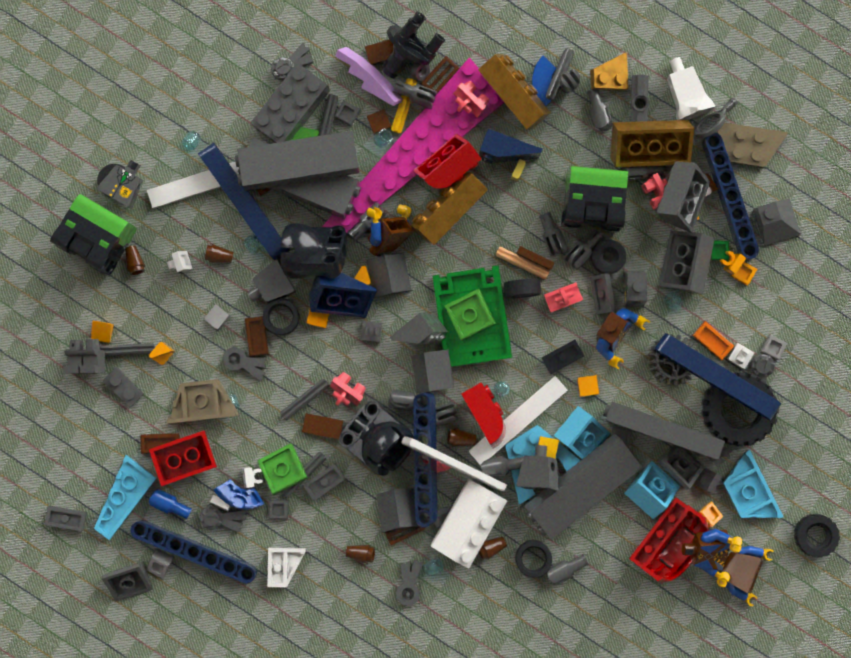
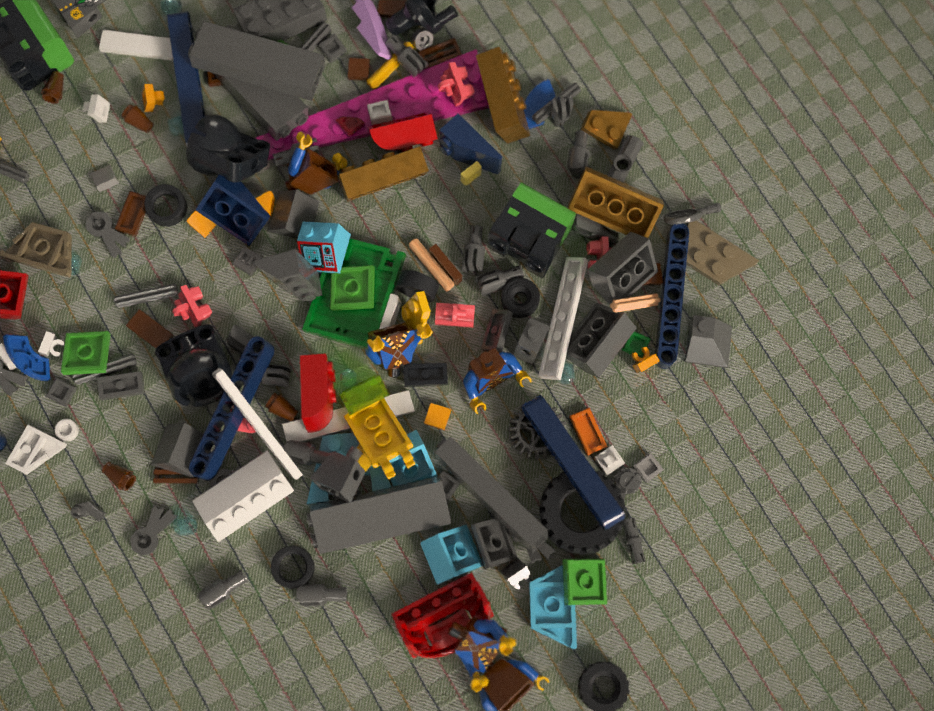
camera: 20 degrees right, 10 degrees down
(161, 353) = (30, 185): light orange slope -> none
(220, 231) = (151, 98): none -> light orange tile
(271, 284) = (172, 169): dark grey torso -> none
(299, 536) = (66, 430): none -> white tile
(349, 590) = (86, 509): none -> dark grey arm
(382, 138) = (353, 84): clear light blue piece -> none
(398, 176) = (350, 124): none -> dark red tile
(417, 154) = (379, 112): none -> white tile
(429, 292) = (323, 245): none -> medium azure slope
(432, 371) = (288, 326): dark grey slope -> none
(487, 603) = (221, 590): none -> dark grey arm
(492, 547) = (255, 534): reddish brown cone -> none
(511, 323) = (391, 311): none -> white tile
(522, 397) = (364, 394): none -> clear neon green tile
(529, 346) = (395, 346): none -> torso
(533, 312) = (416, 311): none -> yellow wing
(553, 424) = (381, 436): none -> yellow tile
(651, 257) = (563, 318): none -> white tile
(688, 92) = (675, 177): white piece -> none
(705, 218) = (635, 302): none -> light nougat axle
(711, 513) = (501, 609): light orange tile -> none
(744, 273) = (651, 378): light orange tile -> none
(766, 462) = (584, 581): none -> bright green tile
(790, 412) = (633, 541): none -> dark grey pin

